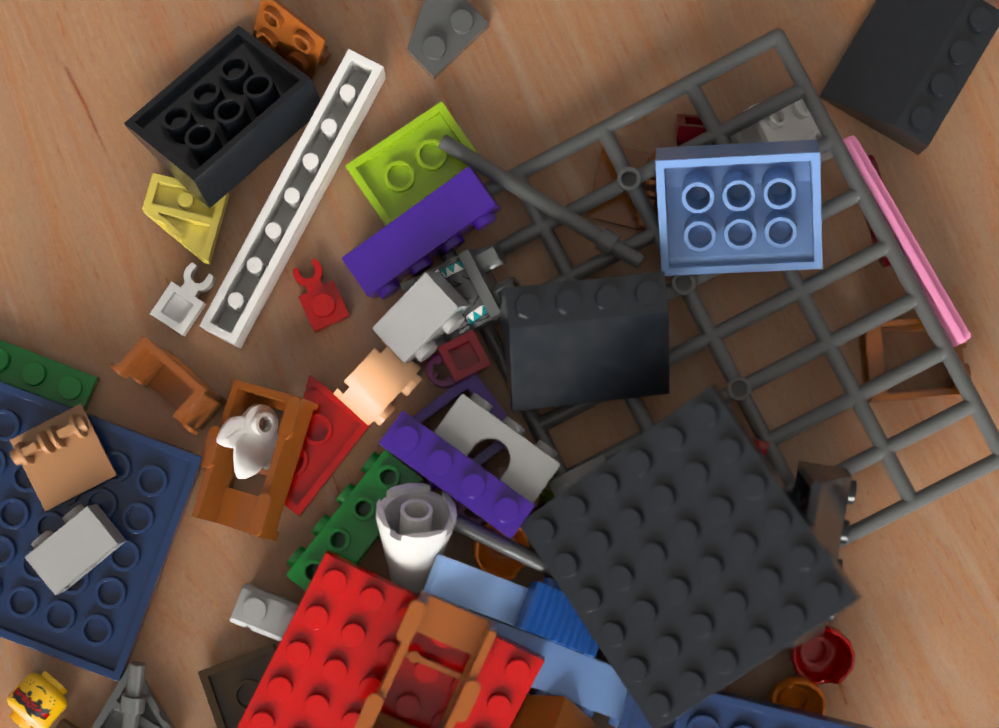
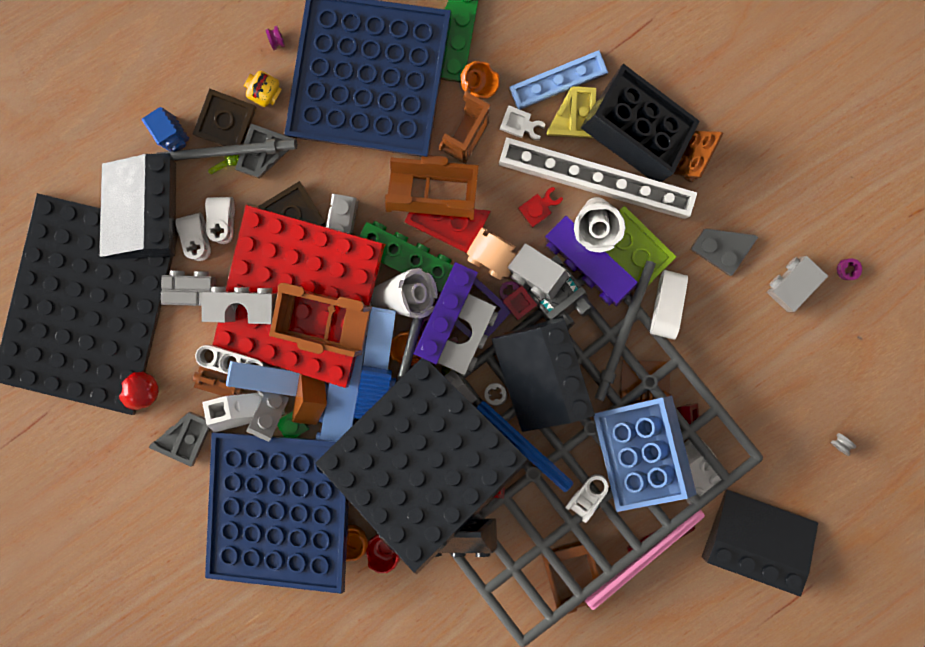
camera: 75 degrees right, 5 degrees up
(62, 457) = (410, 71): medium nougat hinge -> none
(74, 548) = (356, 91): light grey brick -> none
(97, 348) = (480, 79): none -> orange hair
(127, 229) = (558, 80): none -> light blue tile
(250, 444) = (440, 184): white plate -> none
(368, 207) = (599, 225): none -> white cone
(514, 126) = (669, 304): none -> white beam
(589, 423) = (496, 402): none -> light grey bush
(715, 375) = (526, 448): none -> blue axle
(793, 309) = (587, 498): none -> white piece

